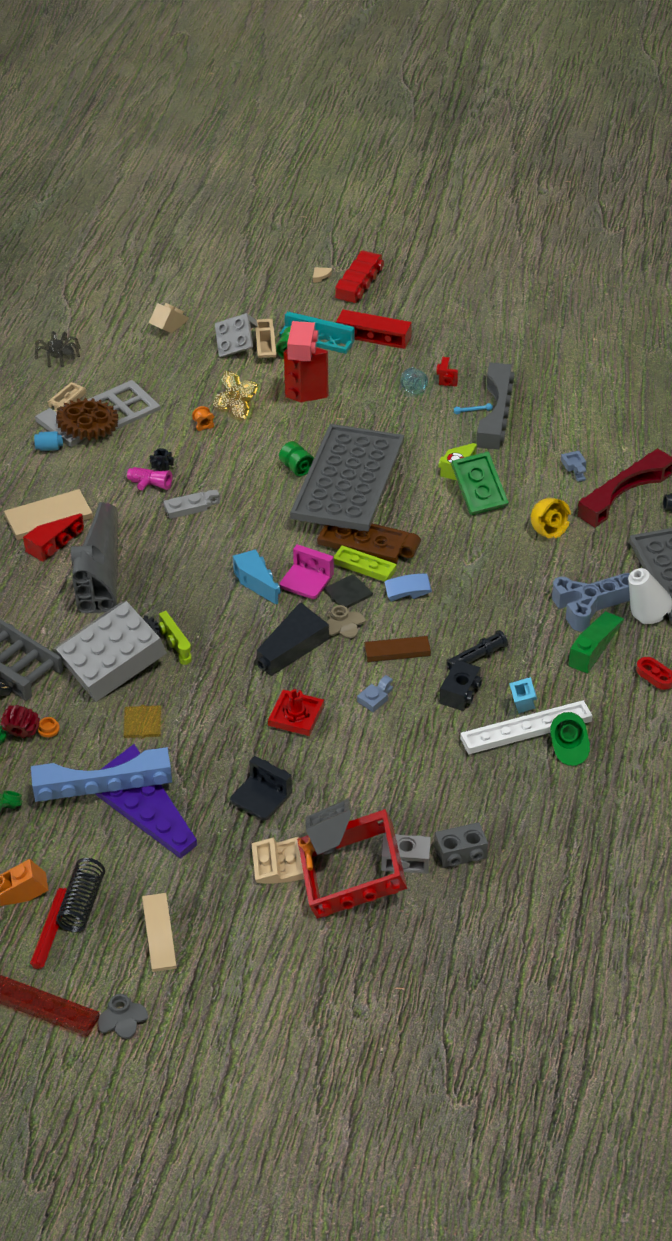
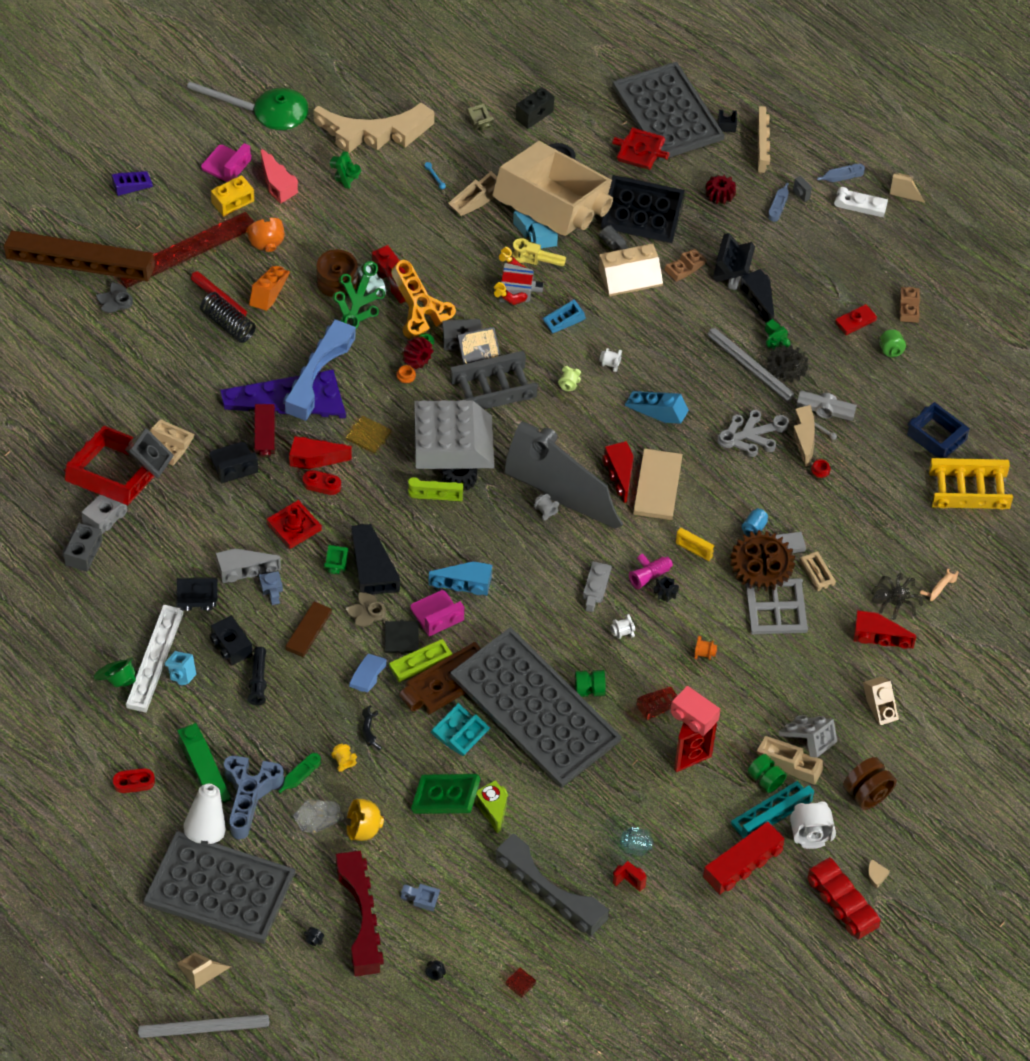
camera: 120 degrees right, 10 degrees up
(15, 330) = (949, 577): none -> light nougat piece
(92, 1075) = (79, 255): none -> reddish brown brick
(100, 463) = (694, 544): none -> yellow tile
(104, 345) = (877, 629): none -> red slope
(134, 562) = (546, 506): none -> light grey brick
(159, 932) = (162, 344): tan slope -> none
(203, 785) = (265, 429): none -> dark red slope
(204, 738) = (313, 453): none -> red slope
(222, 467) = (623, 627): none -> white brick
(228, 722) = (321, 482): none -> red plate
(236, 394) = (713, 685): clear yellow plant -> none
(255, 288) = (869, 783): none -> reddish brown wheel
(276, 424) = (650, 712): none -> clear red slope
(312, 664) = (336, 559): none -> green bracket
(316, 301) = (812, 824): none -> white brick
(375, 723) = (241, 564): none -> light grey slope
(407, 514) = (460, 730): none -> teal slope
(442, 726) = (197, 592): none -> black bracket
(457, 410) = (574, 860): dark azure hinge -> none
(469, 556) = (366, 731): none -> black piece
(502, 560) = (343, 757): none -> yellow brick
(533, 583) = (301, 772): none -> green piece
(570, 547) = (317, 815): none -> clear slope
(585, 390) = (520, 982): none -> clear red tile
(624, 431) = (435, 970): none -> black plate

